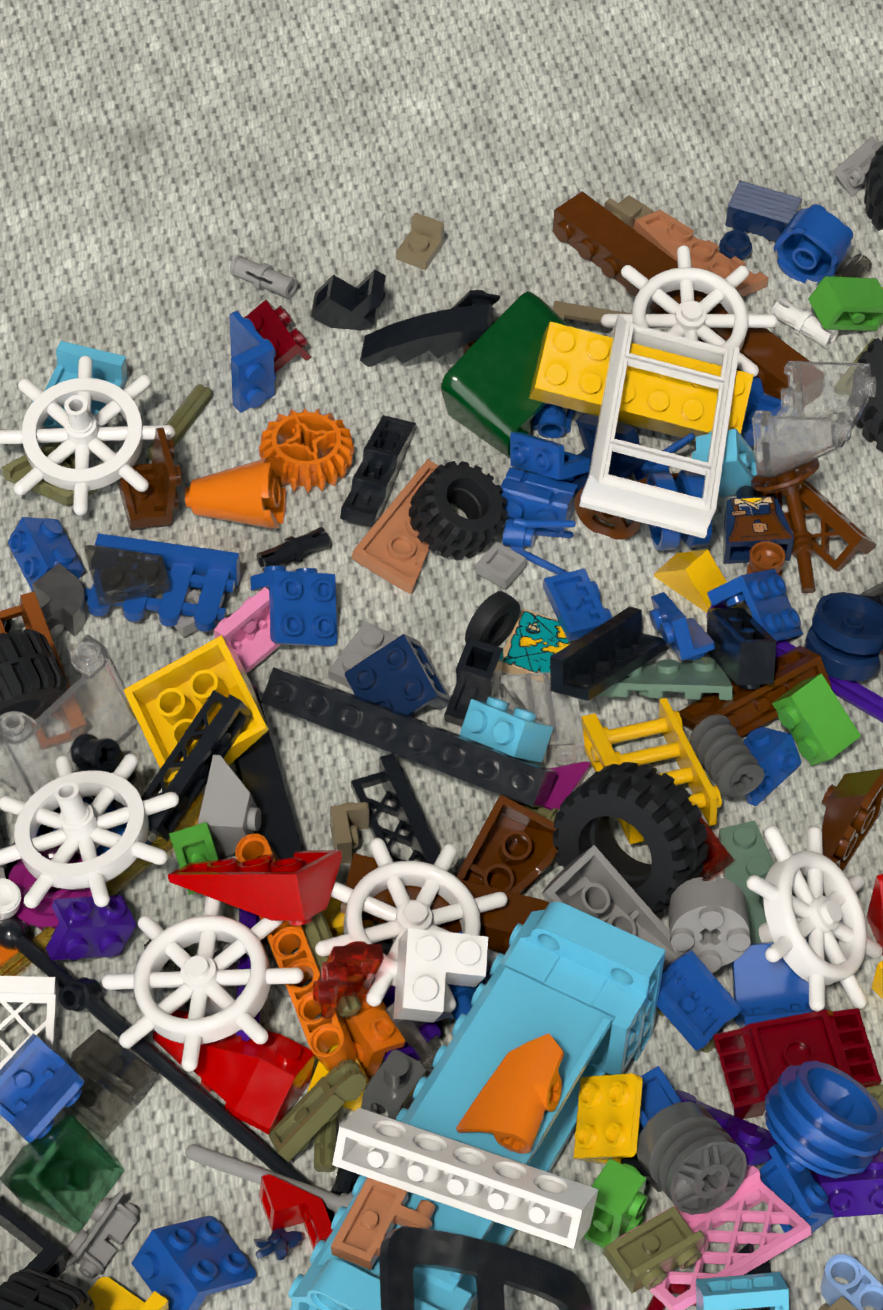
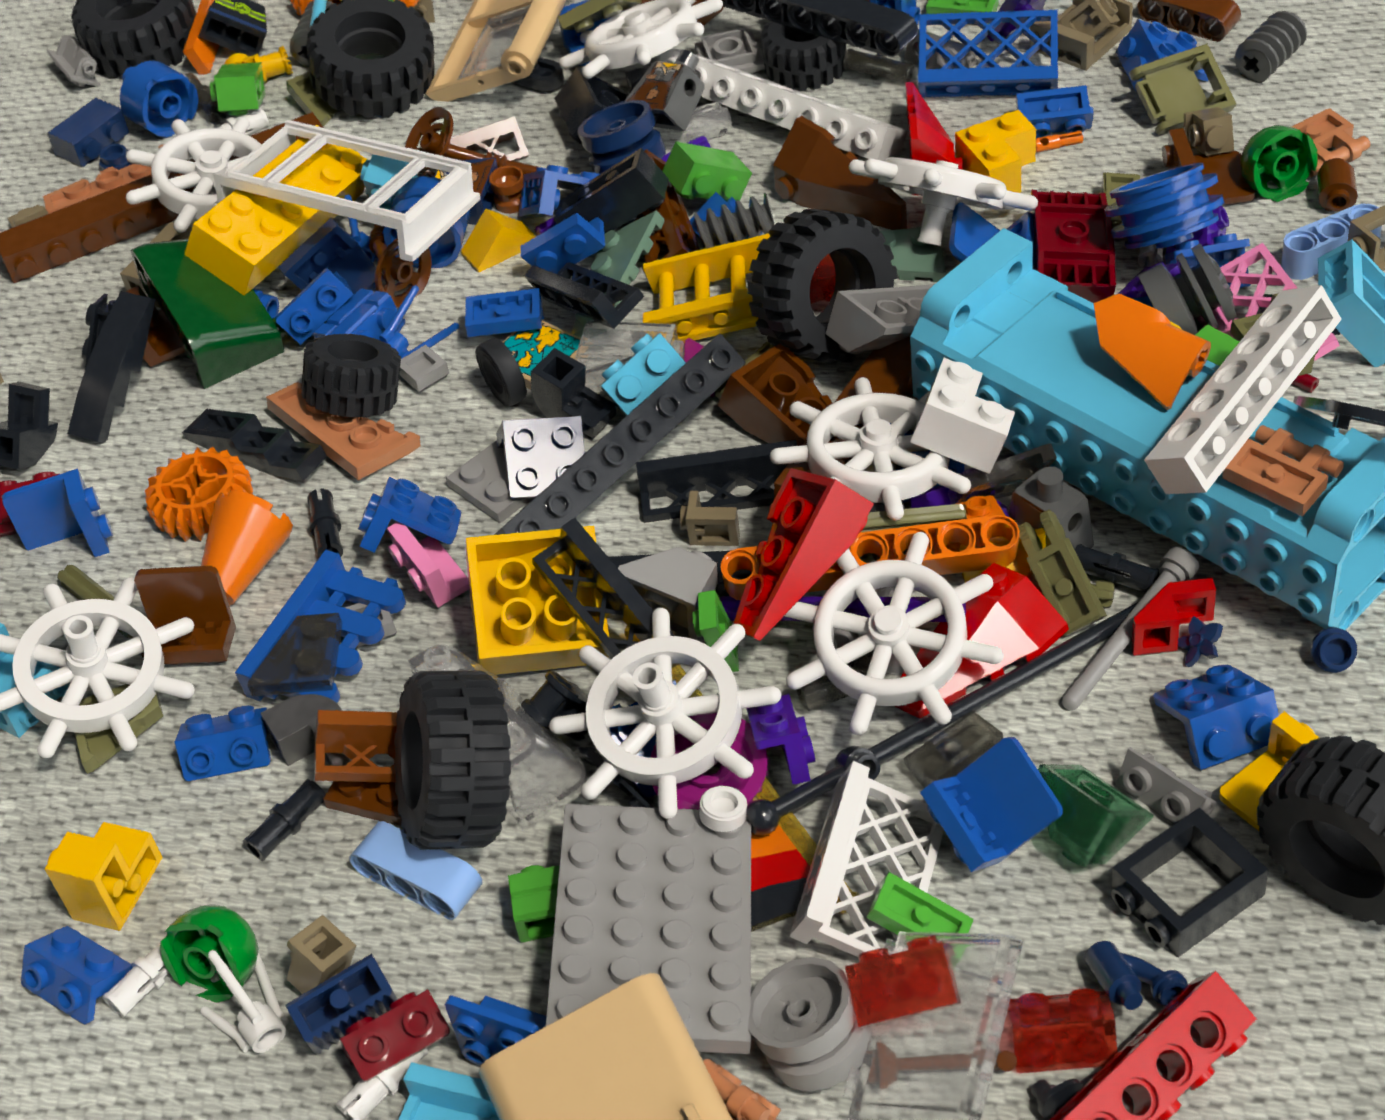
camera: 65 degrees left, 5 degrees down
(346, 973) = (958, 481): clear red bracket -> none
(709, 921) = (930, 244): light grey brick -> none
(814, 416) = (381, 100): clear windscreen -> none

